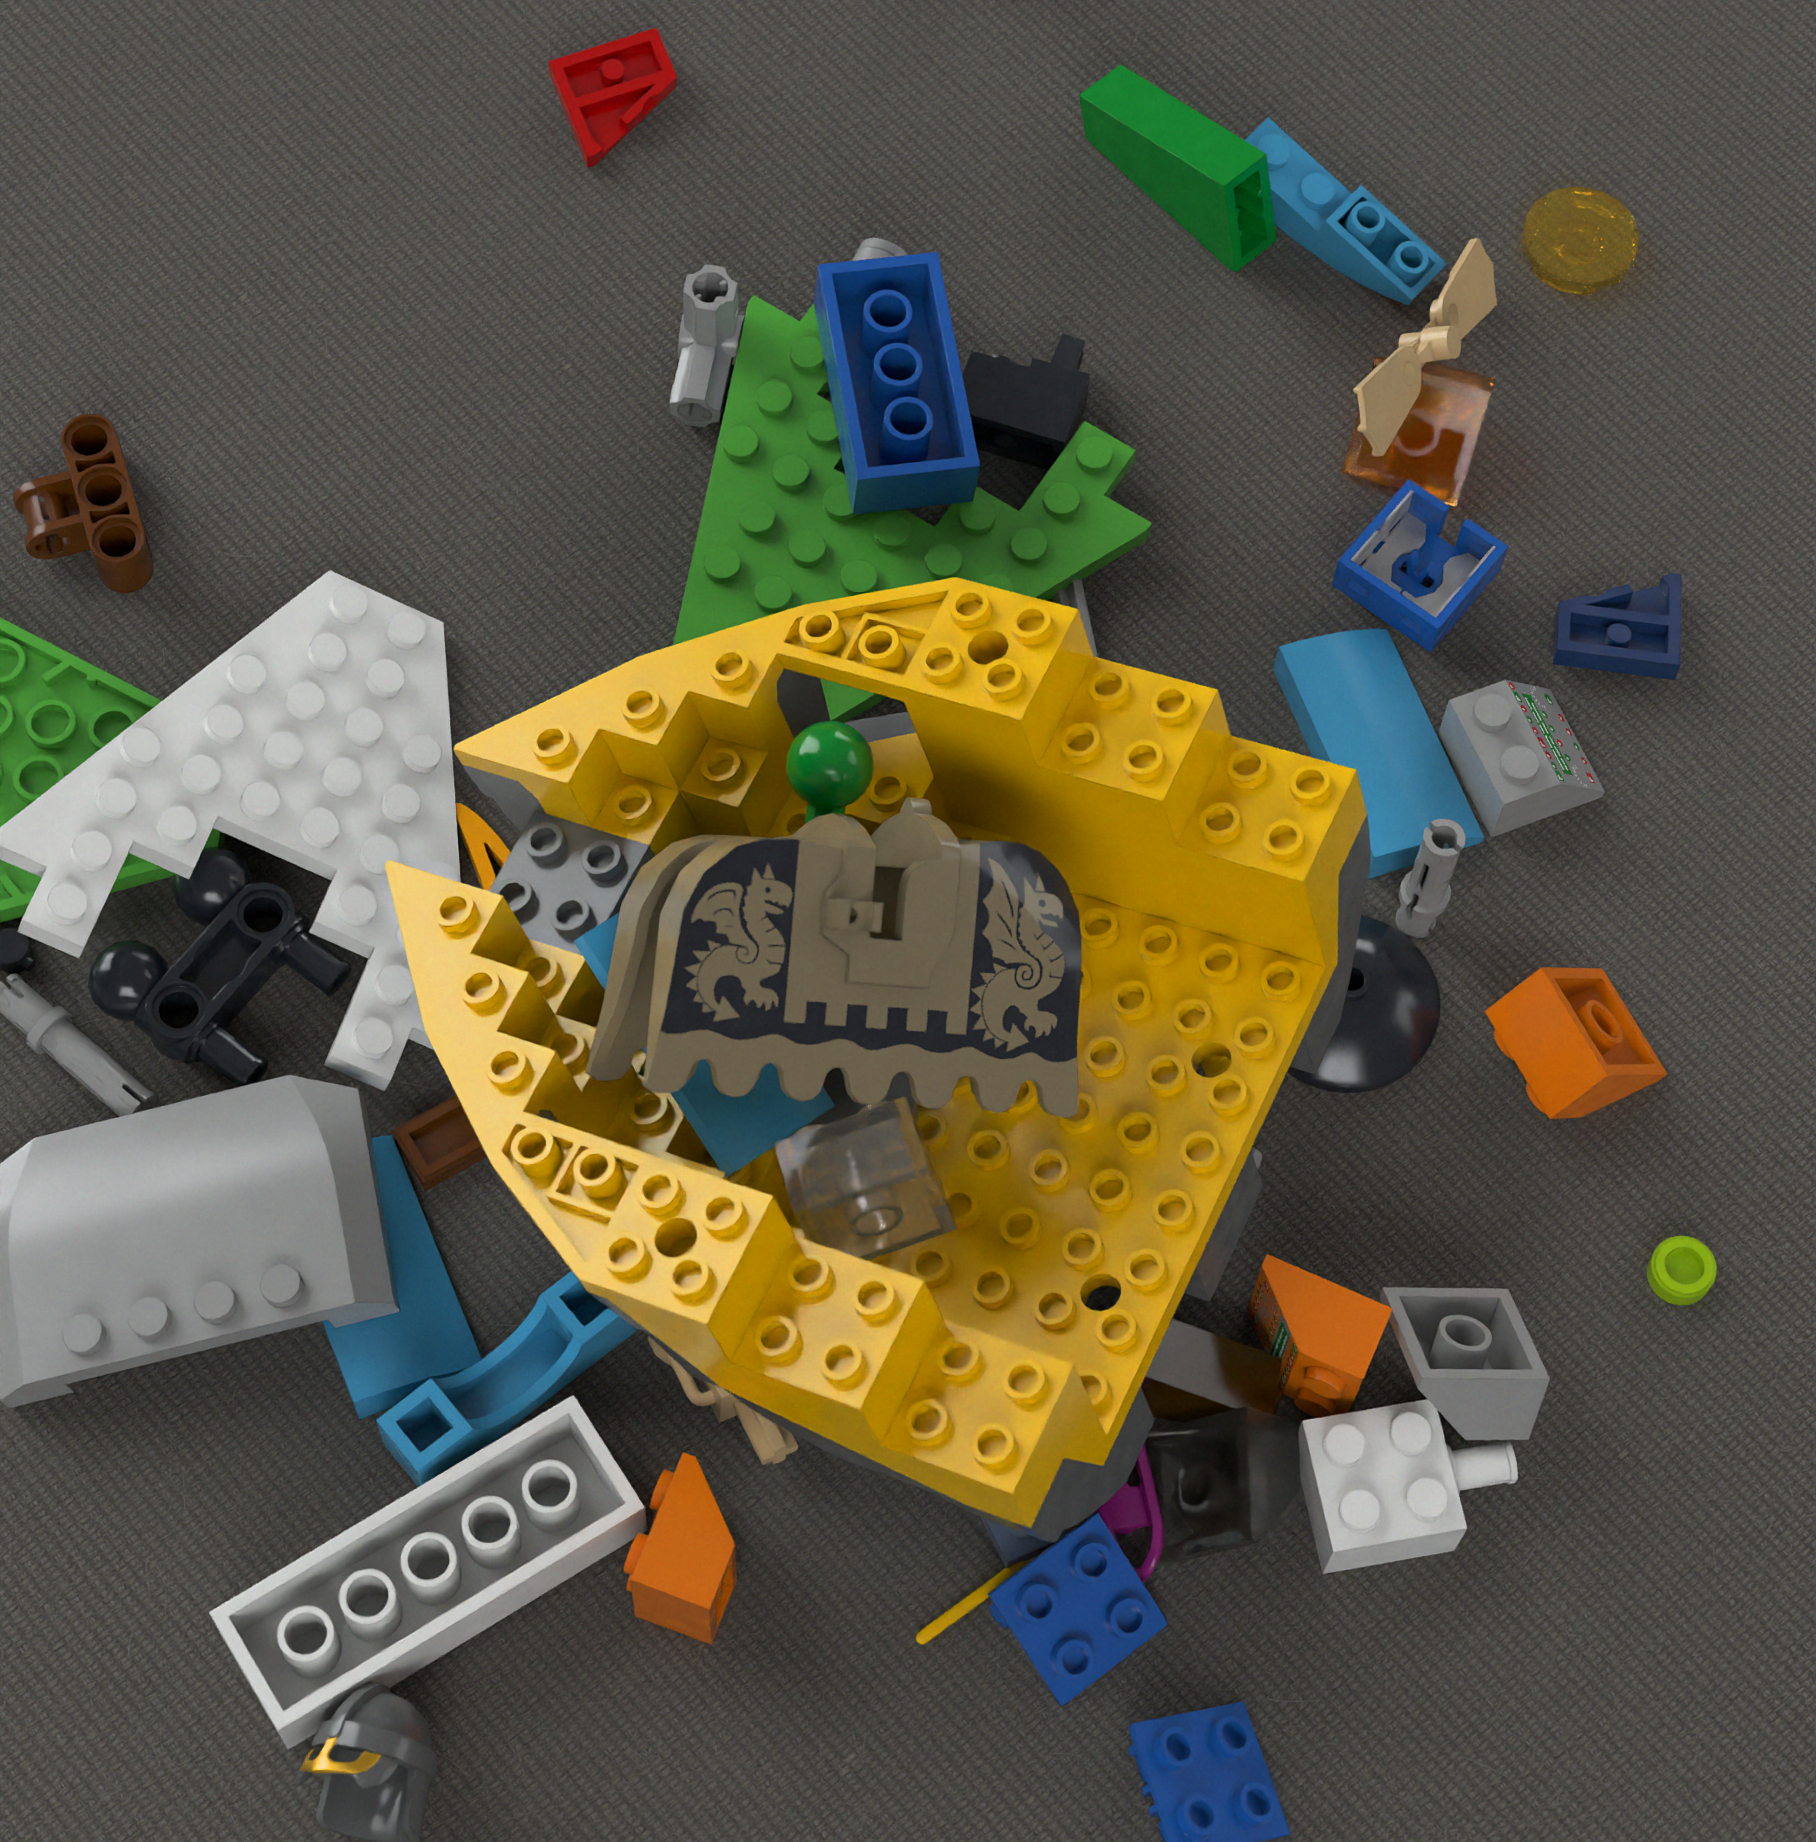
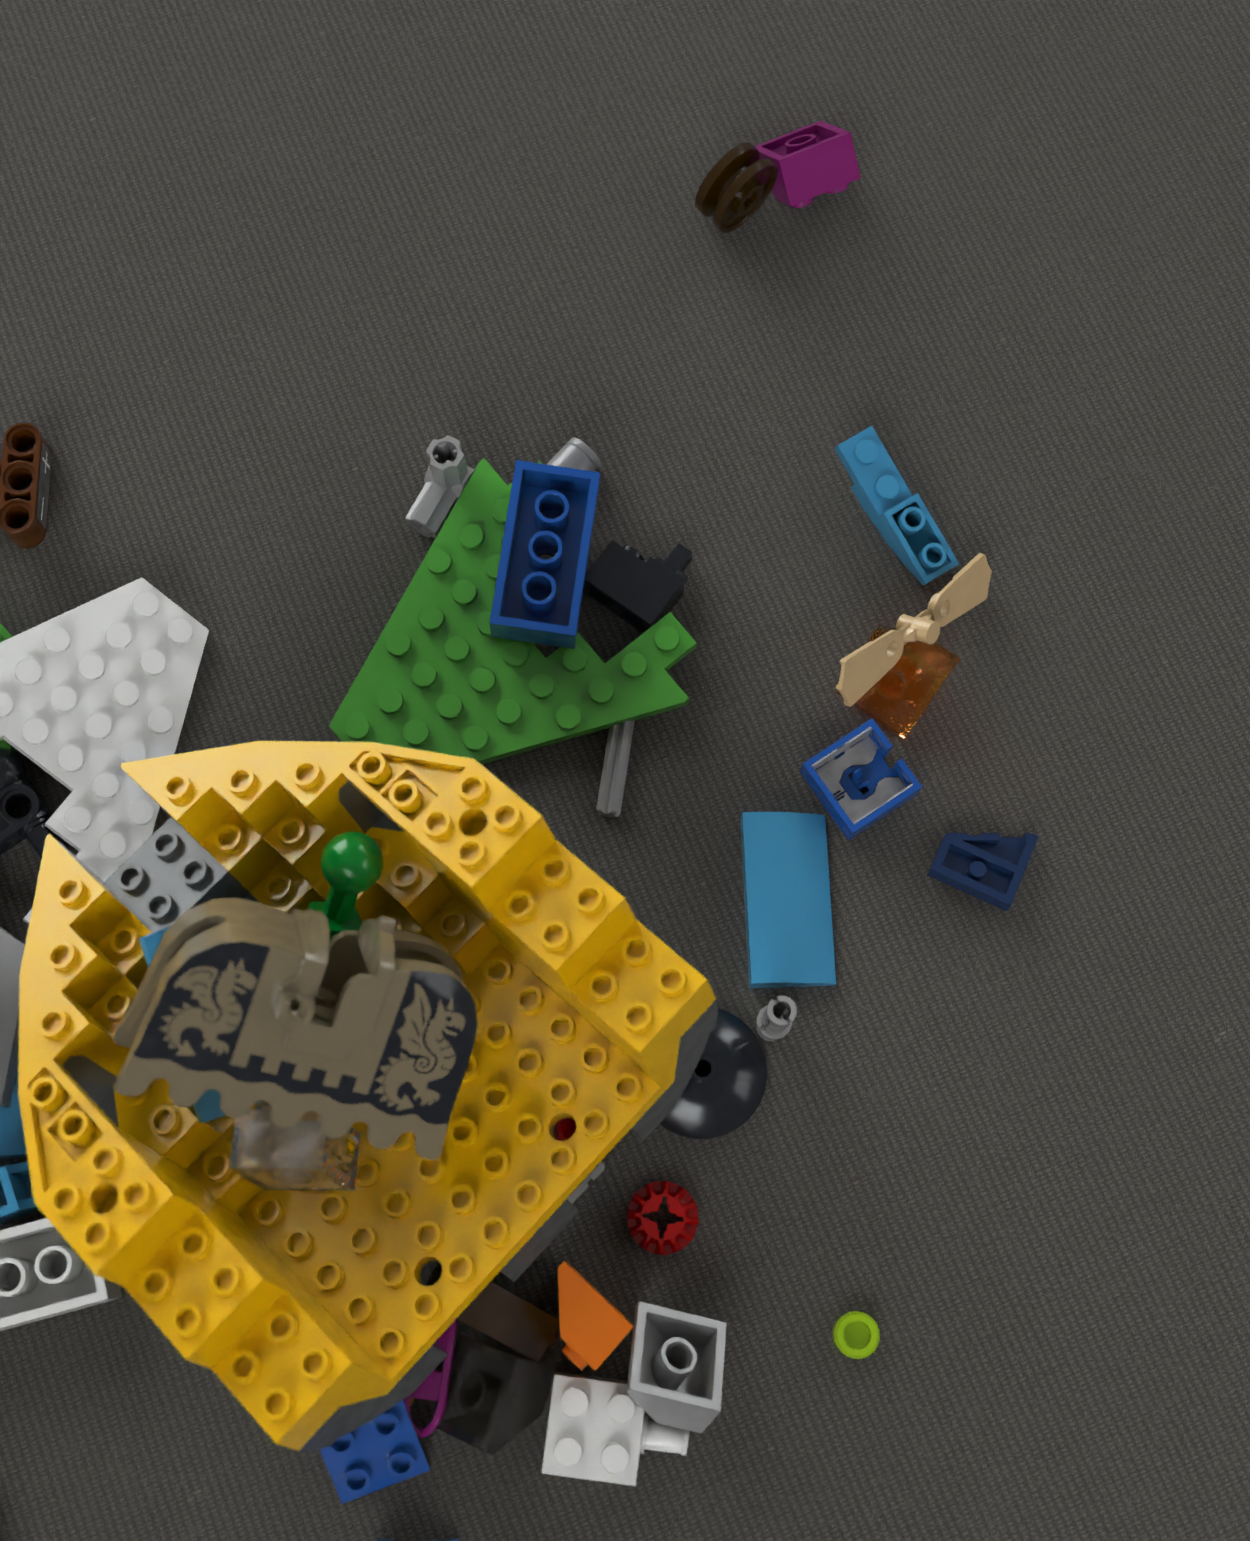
camera: 20 degrees right, 10 degrees up
(612, 89) = (448, 281): red wing -> none
(687, 1561) = (121, 1344): orange slope -> none
(1184, 164) = (805, 441): green slope -> none
(1349, 1221) = (645, 1231): none -> red gear
(1516, 755) = (880, 934): light grey slope -> none
(1573, 1041) = (841, 1153): orange slope -> none
(1579, 240) = (1059, 569): clear yellow tile -> none

